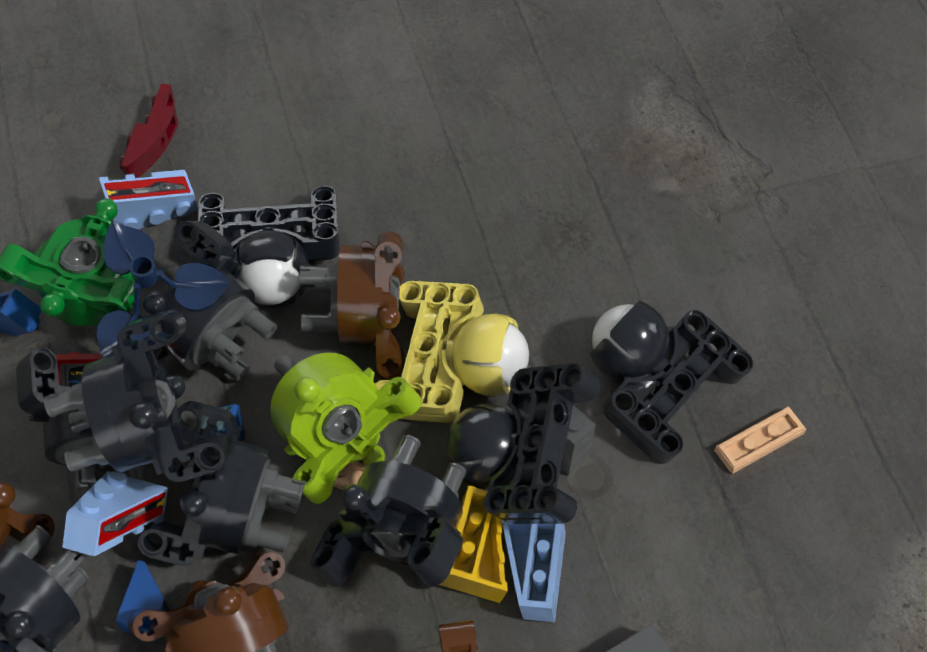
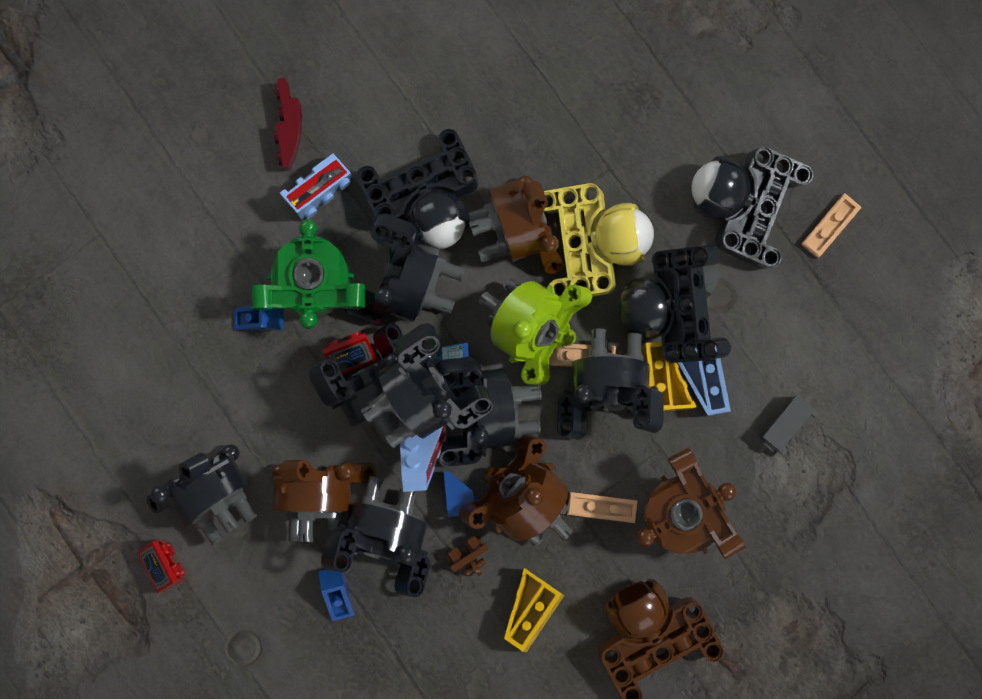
camera: 15 degrees left, 25 degrees up
(133, 251) = (407, 271): dark blue plant -> none

